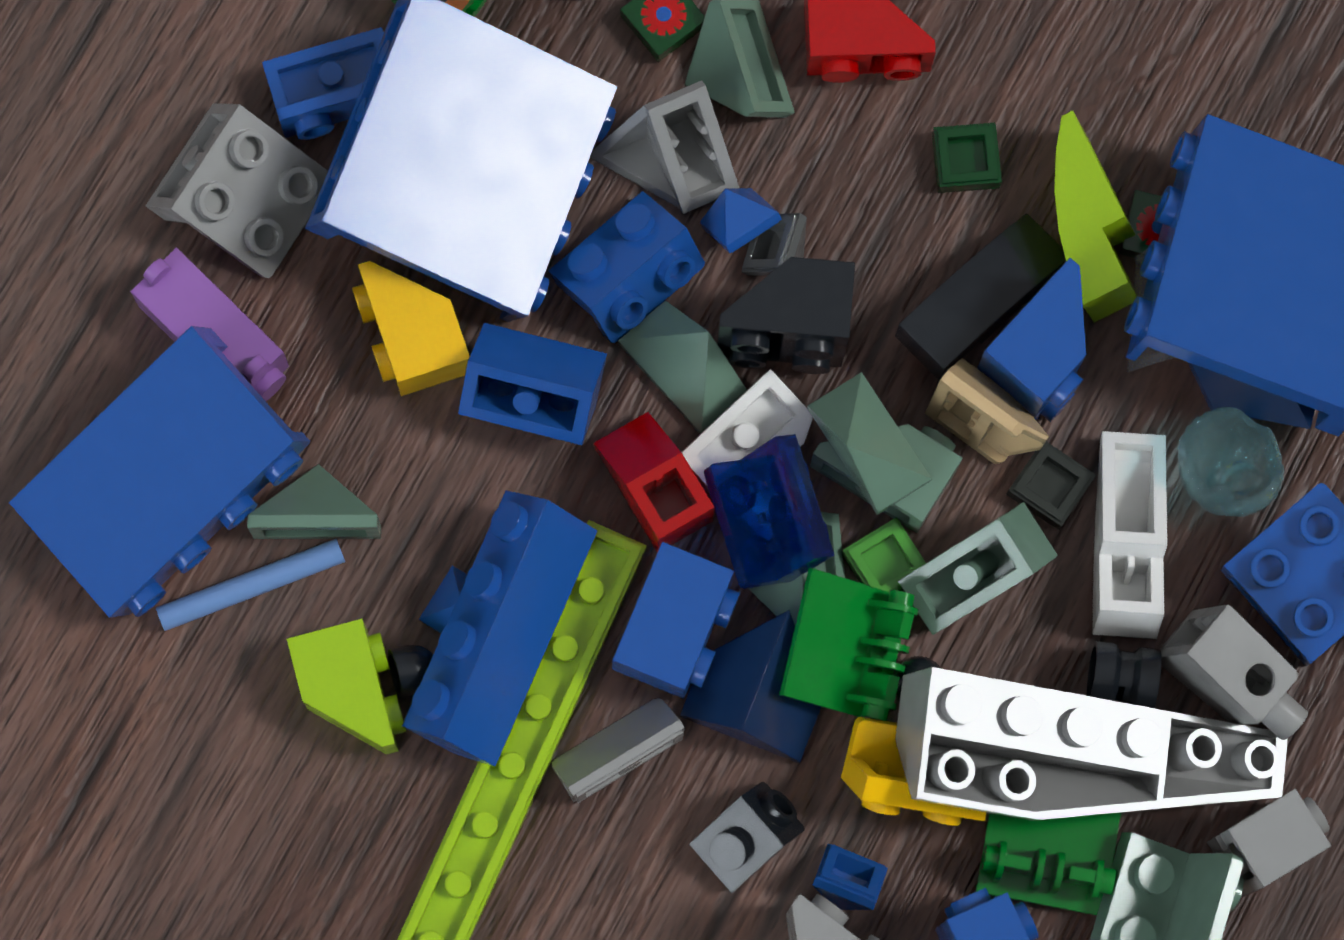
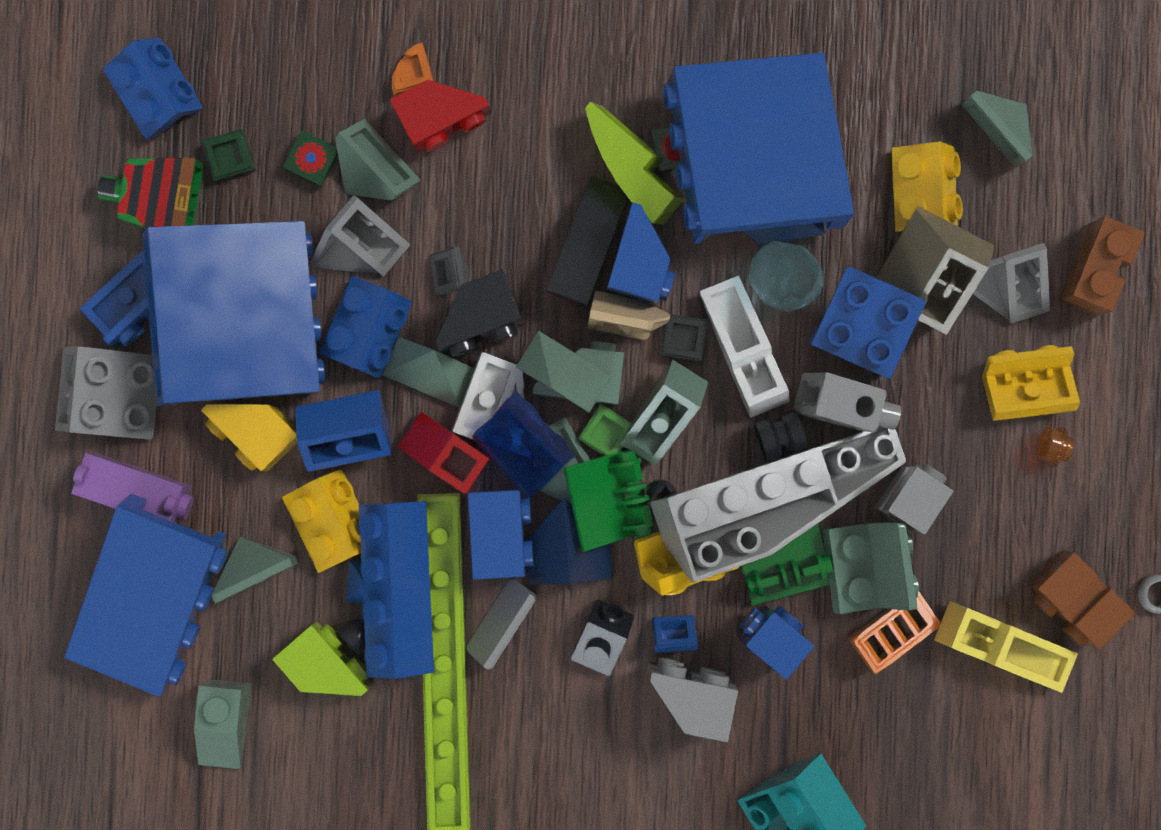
camera: 25 degrees left, 10 degrees up
(169, 700) = (221, 723): none -> sand green slope
(250, 584) = (235, 630): medium blue bar -> none
(449, 493) = (326, 519): none -> yellow bracket
(739, 217) = (418, 265): blue slope -> none
(966, 157) = (538, 158): dark green tile -> none

